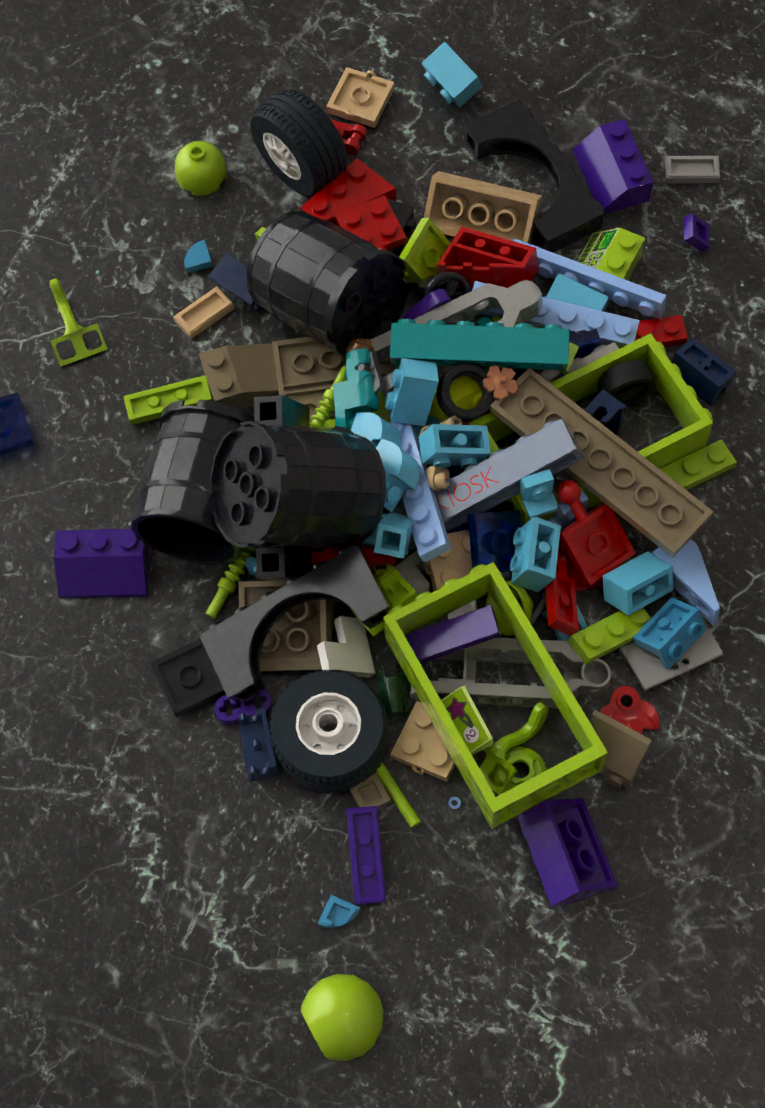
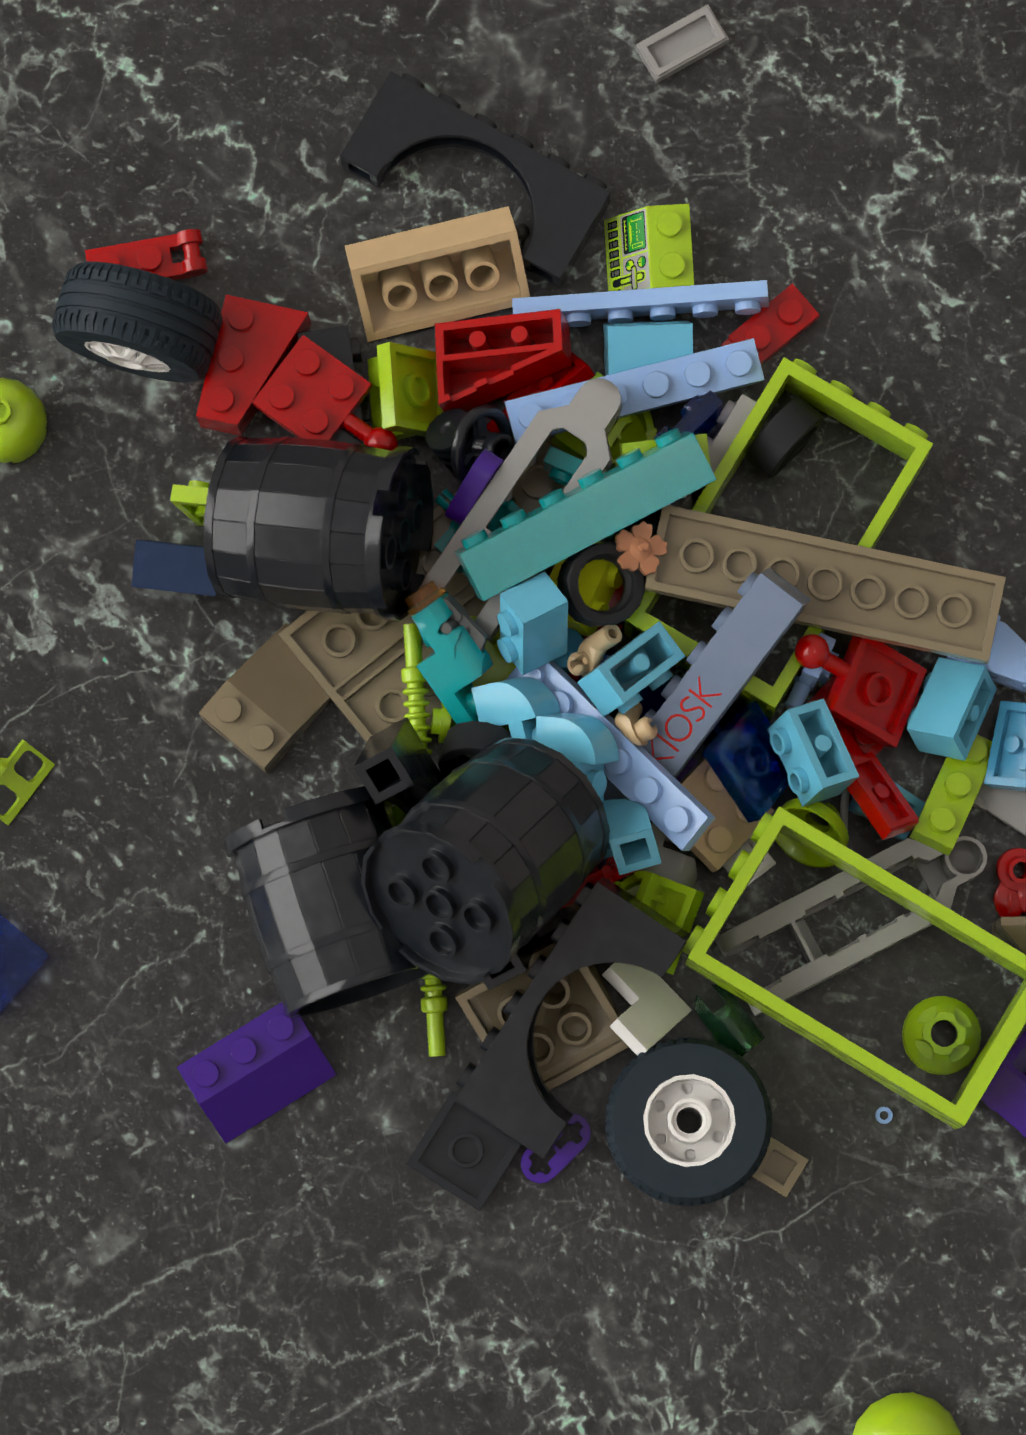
camera: 30 degrees left, 15 degrees up
(150, 403) = (190, 793): lime plate -> none
(197, 257) = (89, 559): dark azure tile -> none
(203, 312) = (151, 636): tan tile -> none
(257, 746) = (606, 1189): dark blue hinge -> none
(337, 913) = (828, 1332): dark azure tile -> none
(360, 97) = (158, 181): tan plate -> none
(366, 855) = (820, 1245): dark purple tile -> none
(398, 797) = (813, 1149): lime bar -> none
(422, 746) = (807, 1071): tan plate -> none
(451, 75) = (269, 80): medium azure brick -> none
(454, 634) = (773, 918): tile -> none
(468, 720) = (851, 1017): slope -> none
(497, 752) = (905, 1028): lime piece -> none
(537, 493) = (778, 679): medium azure bracket -> none
(607, 411) = (785, 501): dark blue hinge -> none
(613, 167) = (577, 105): dark purple slope -> none
(696, 232) = (744, 146): dark purple plate -> none
(701, 465) = (927, 501): lime plate -> none
(703, 371) = (865, 356): dark blue hinge -> none

